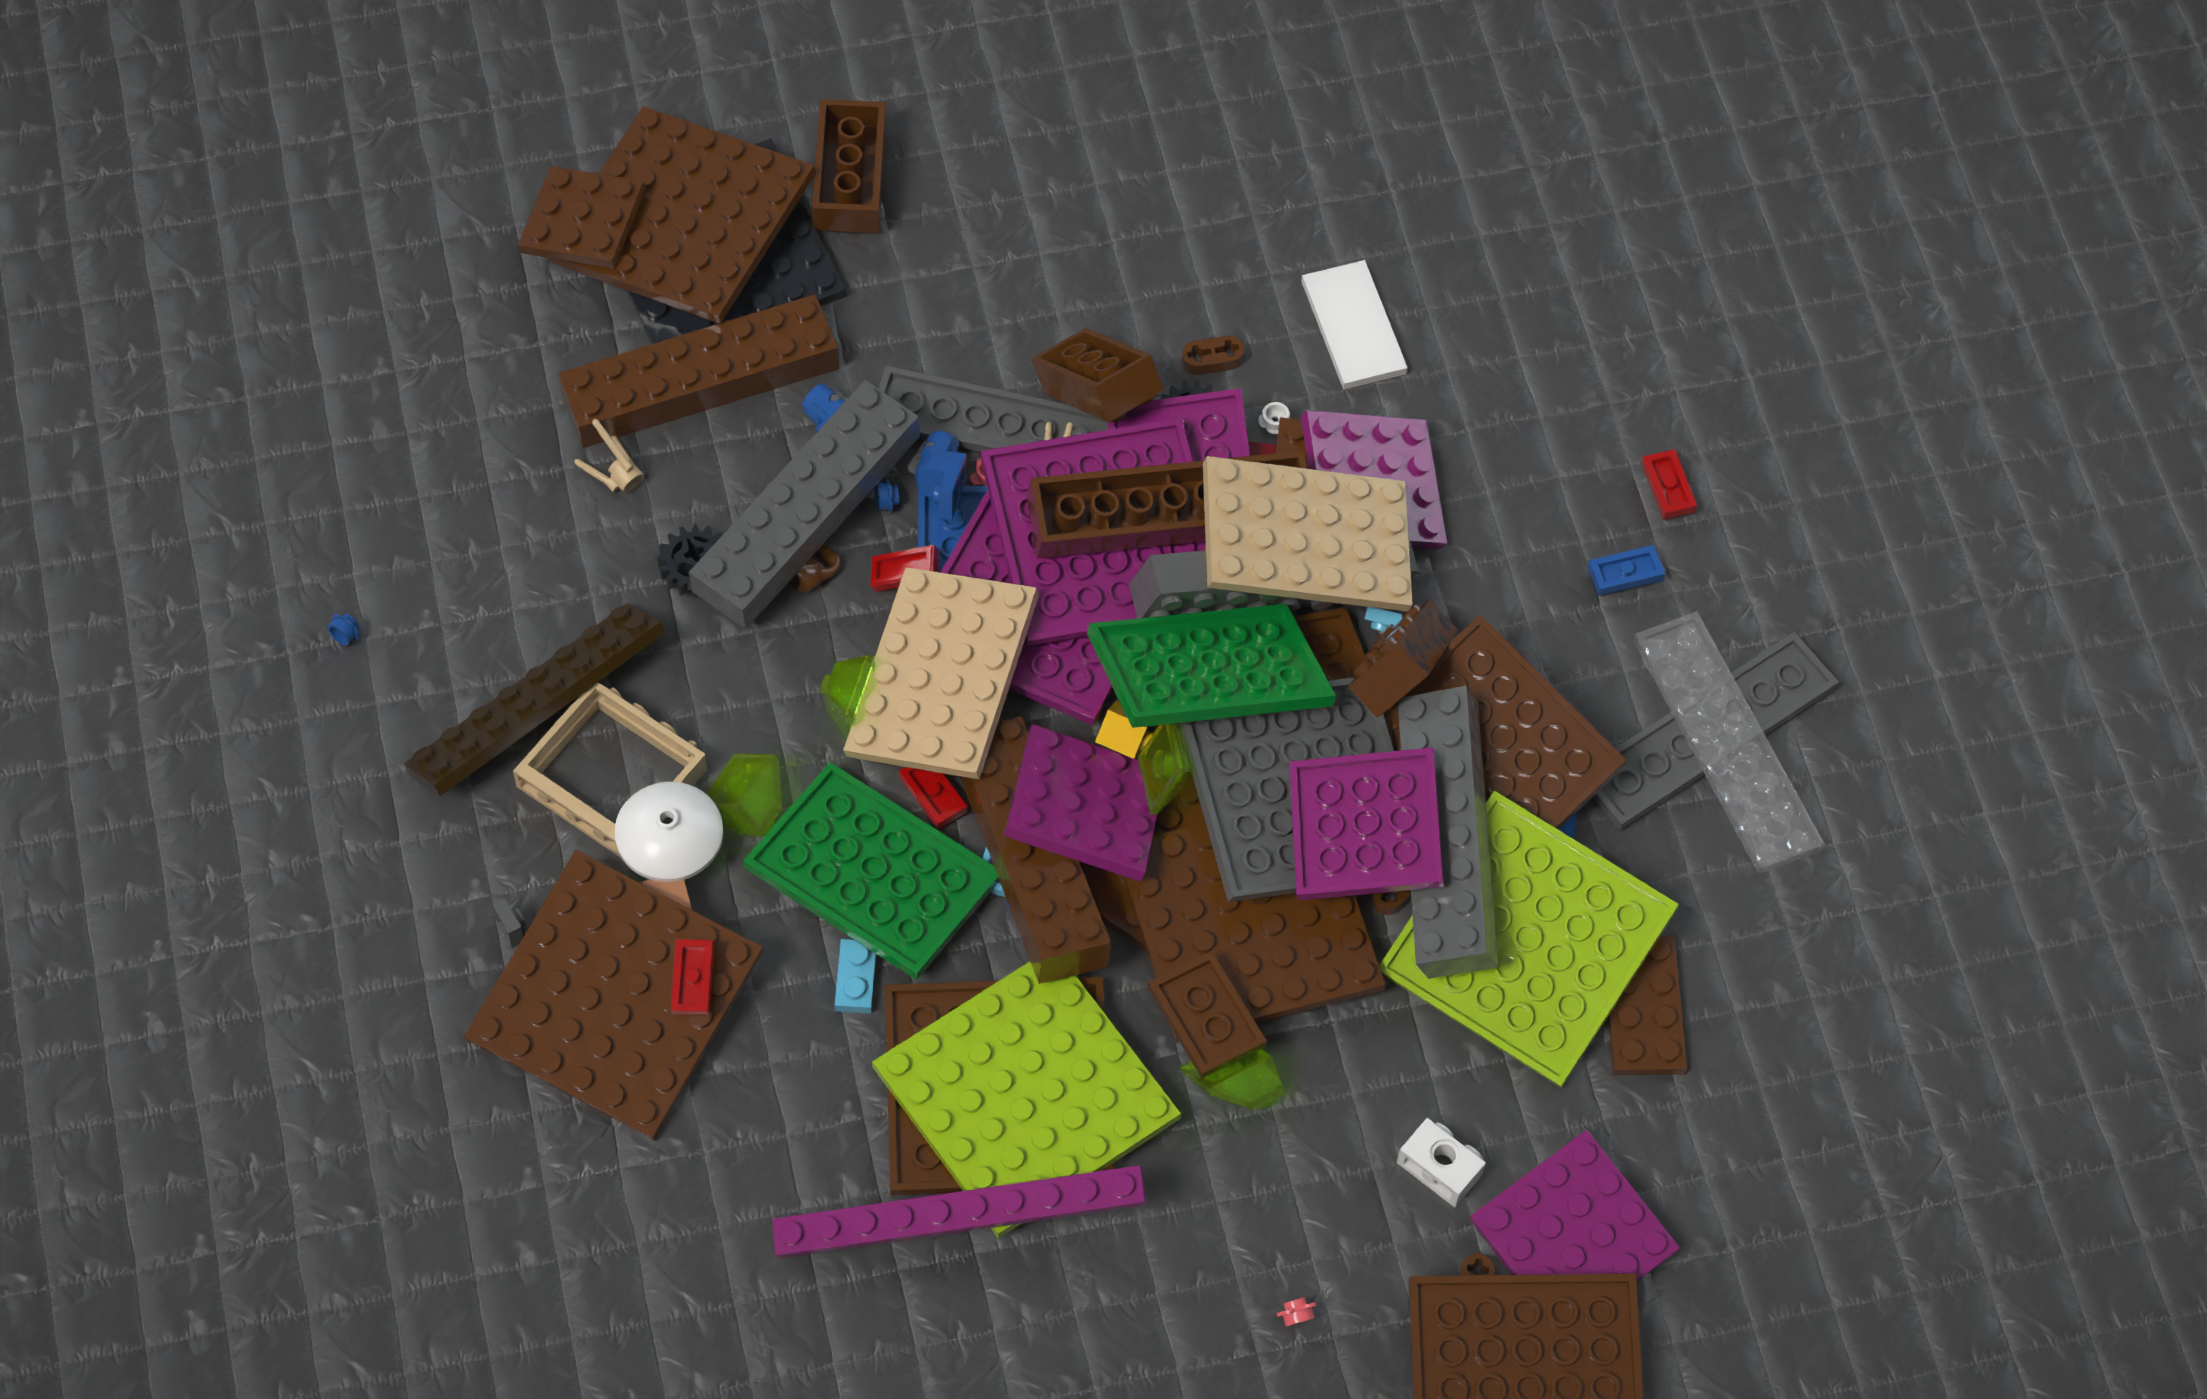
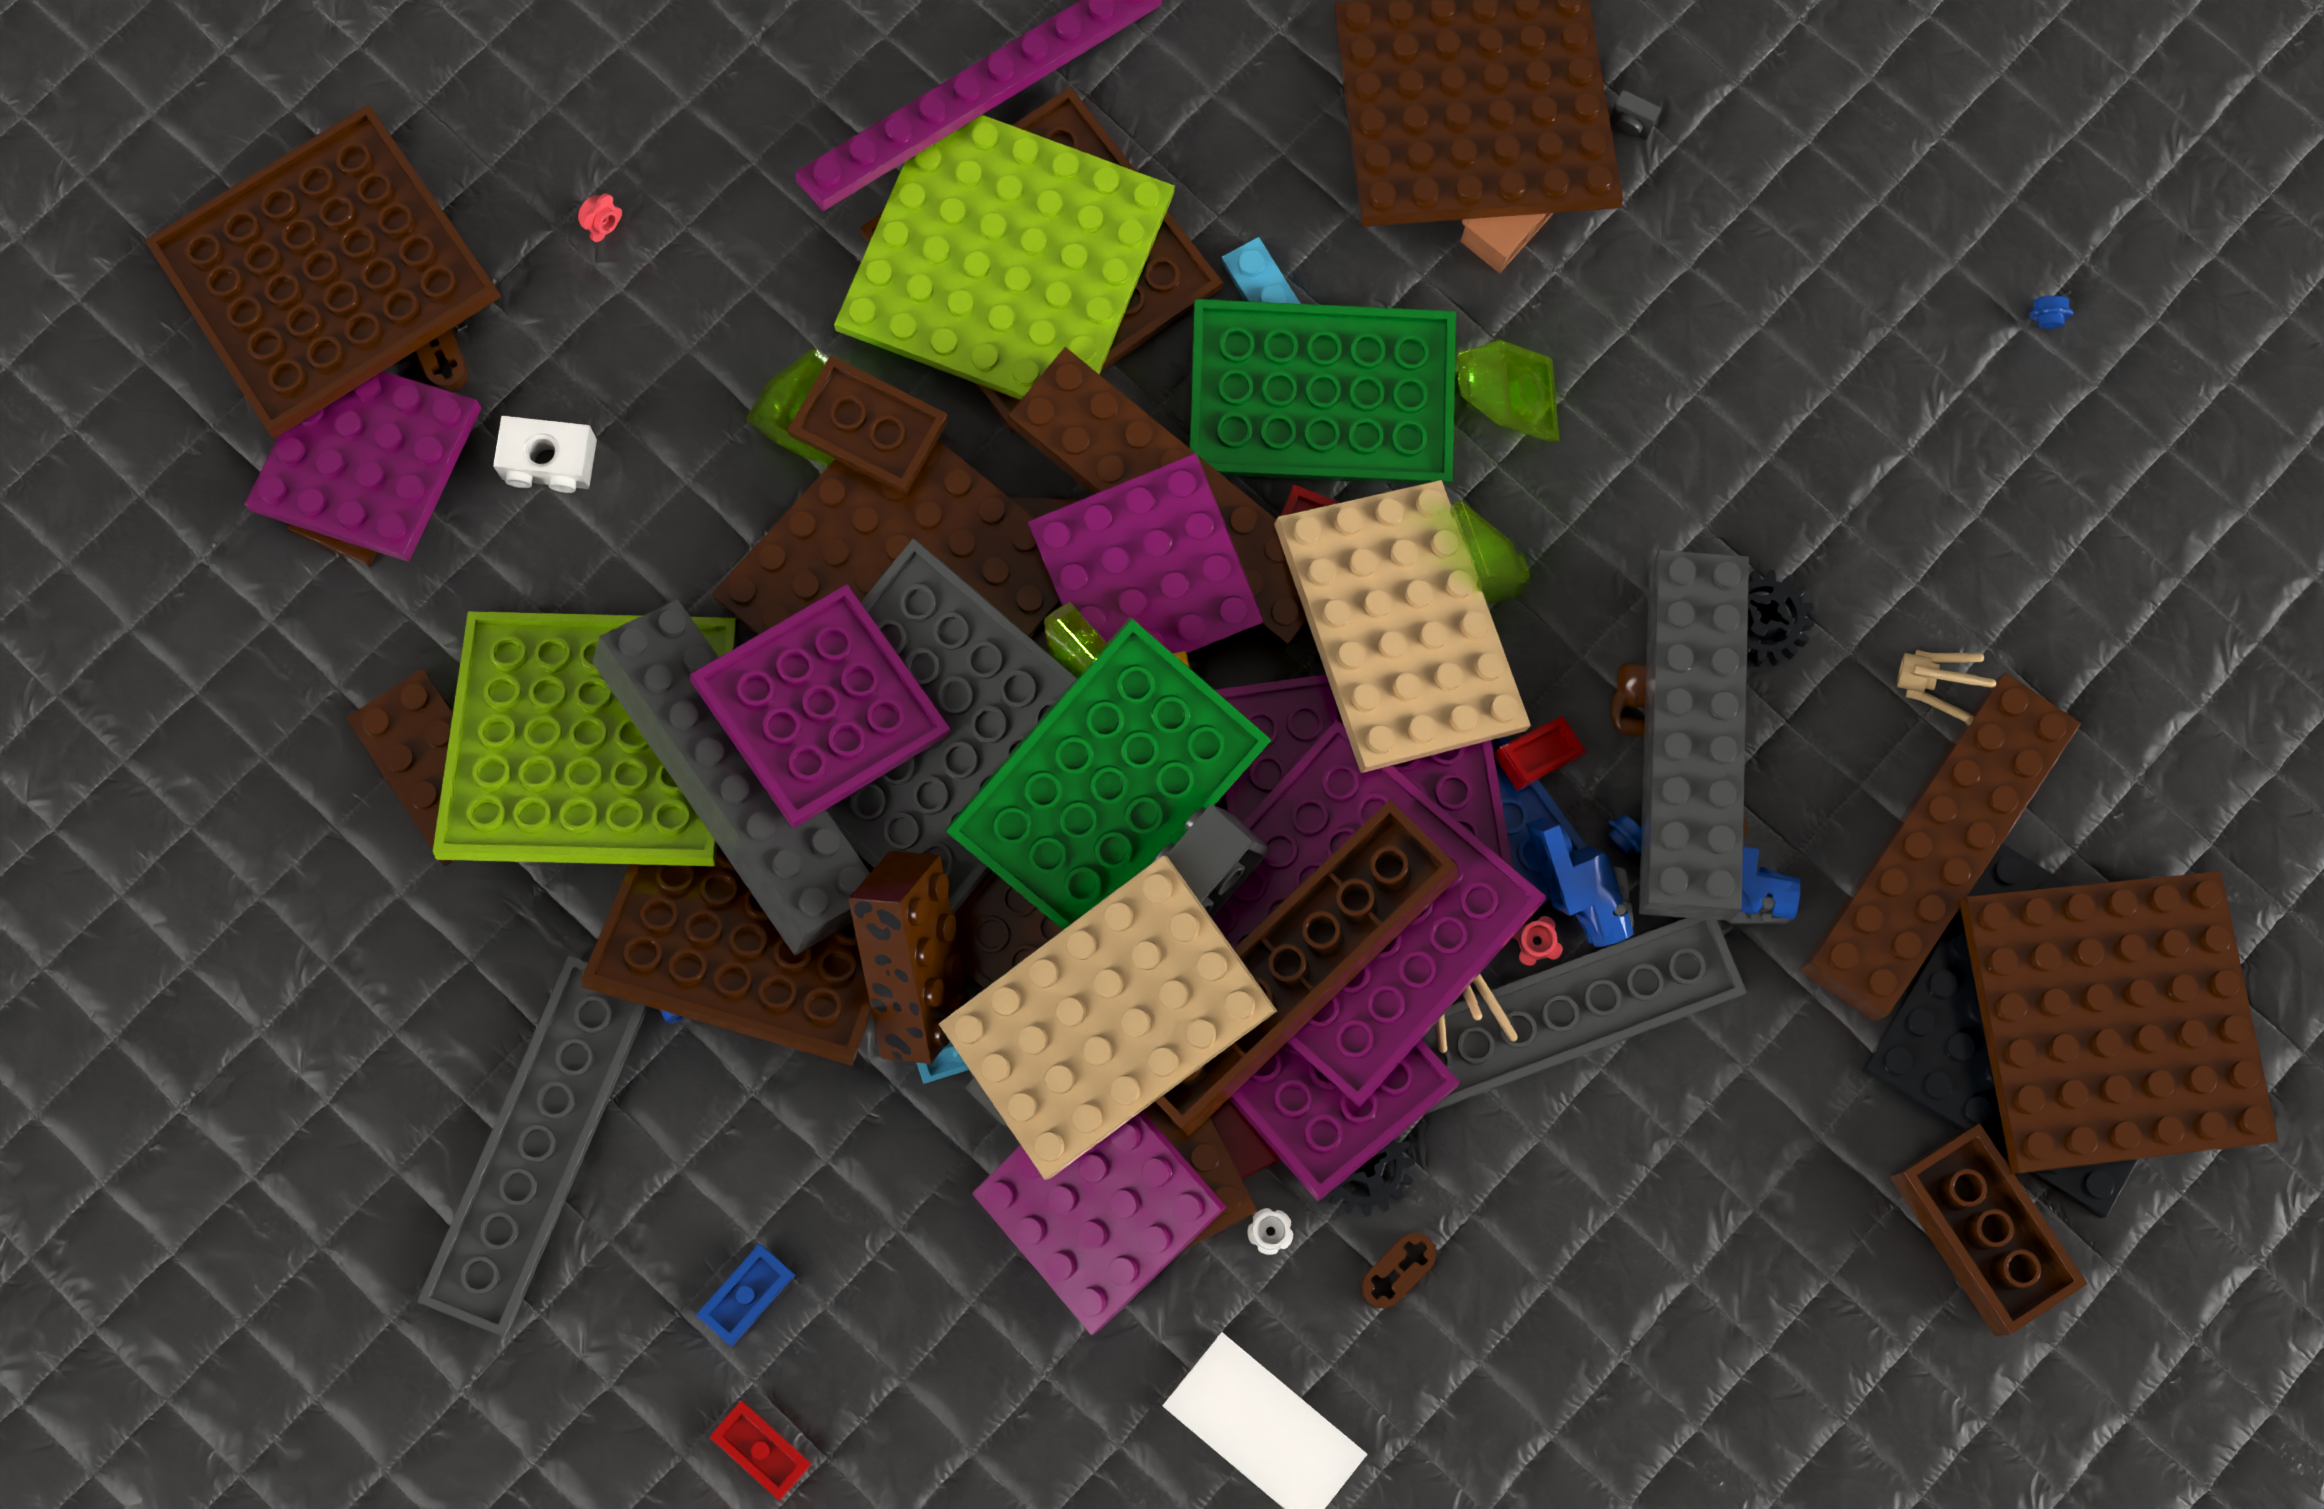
camera: 145 degrees right, 15 degrees up
(533, 698) = (1798, 353): dark brown plate -> none
(582, 217) = (2218, 931): reddish brown plate -> none
(635, 718) = (1667, 267): tan window -> none
(673, 849) = (1546, 311): white dish -> none
(692, 977) = (1404, 135): red plate -> none
(1098, 375) = (1495, 1108): reddish brown brick -> none
(1728, 742) = (501, 1127): clear plate -> none

